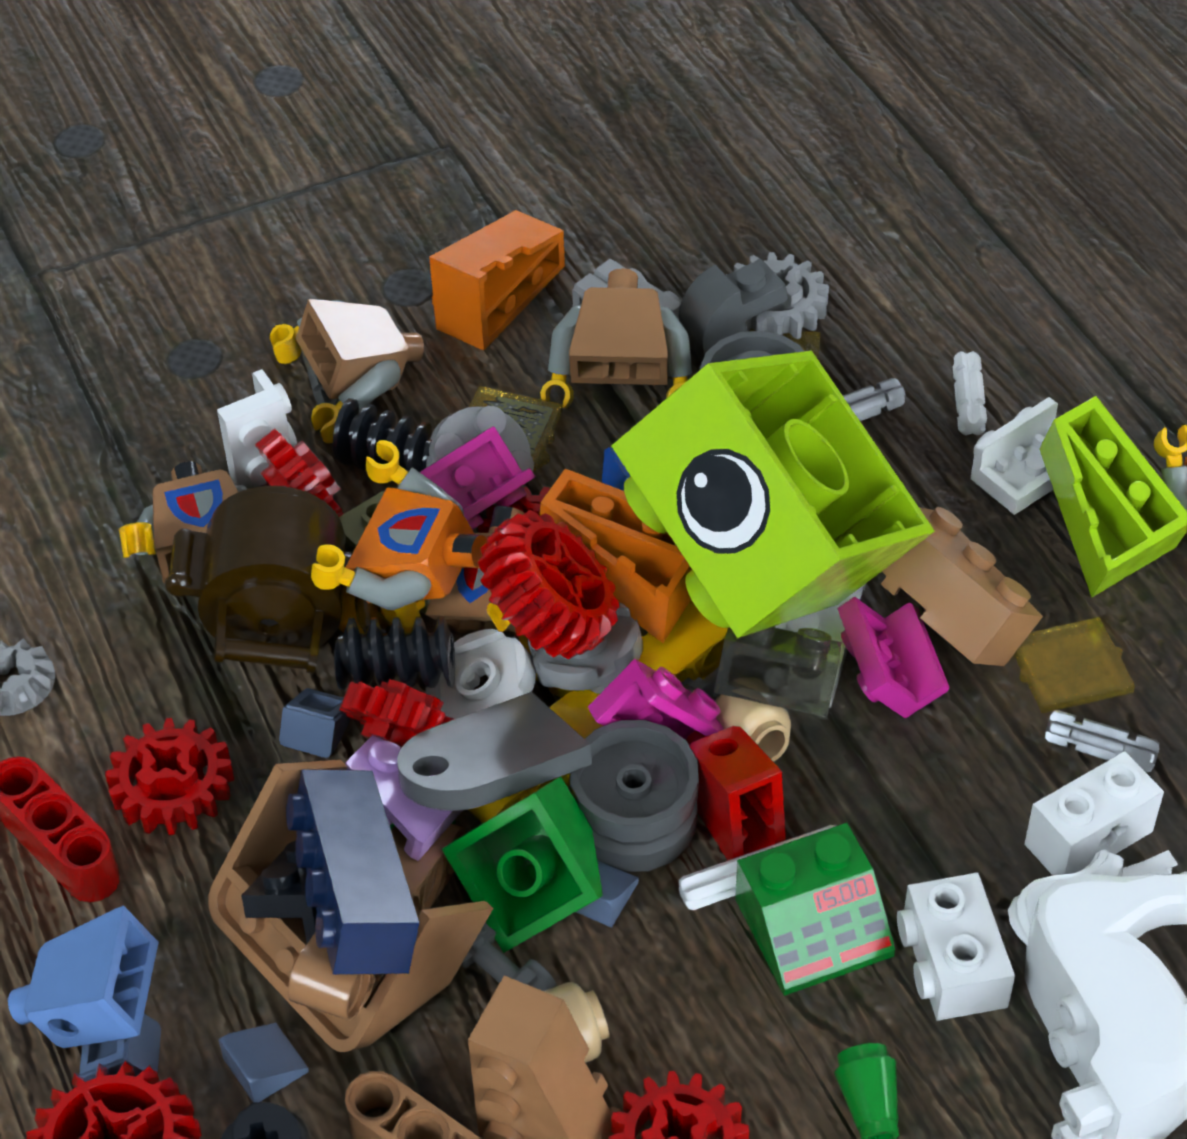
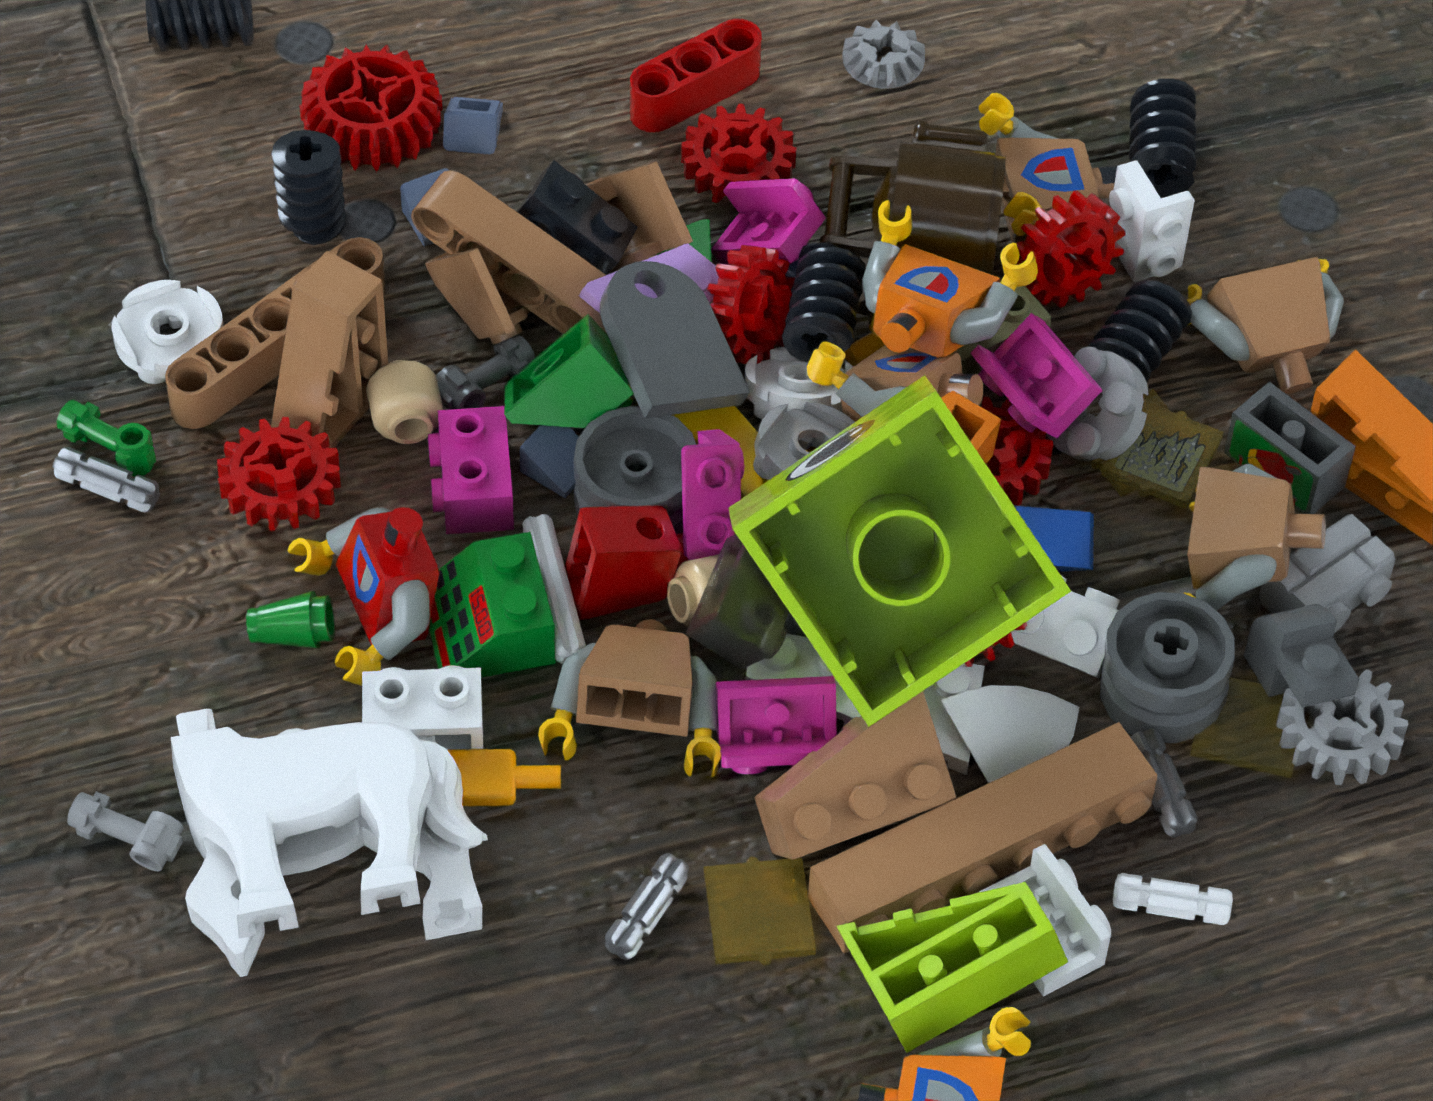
camera: 95 degrees right, 5 degrees up
(90, 982) = (515, 86): medium blue torso -> none
(130, 442) = (1164, 134): none -> black piece
(286, 718) = (770, 215): none -> dark pink bracket
(352, 872) = (543, 215): brick -> none
(504, 331) = (1291, 446): none -> dark grey brick
(548, 585) = (809, 382): red gear -> none
(638, 950) = (474, 470): none -> dark pink brick
(806, 996) = (387, 579): none -> torso
(879, 767) = (640, 683): none -> medium nougat torso
(940, 477) = (986, 833): none -> medium nougat brick
(1000, 881) = (493, 777): none -> light orange piece
(1093, 813) = (540, 858): white brick -> none

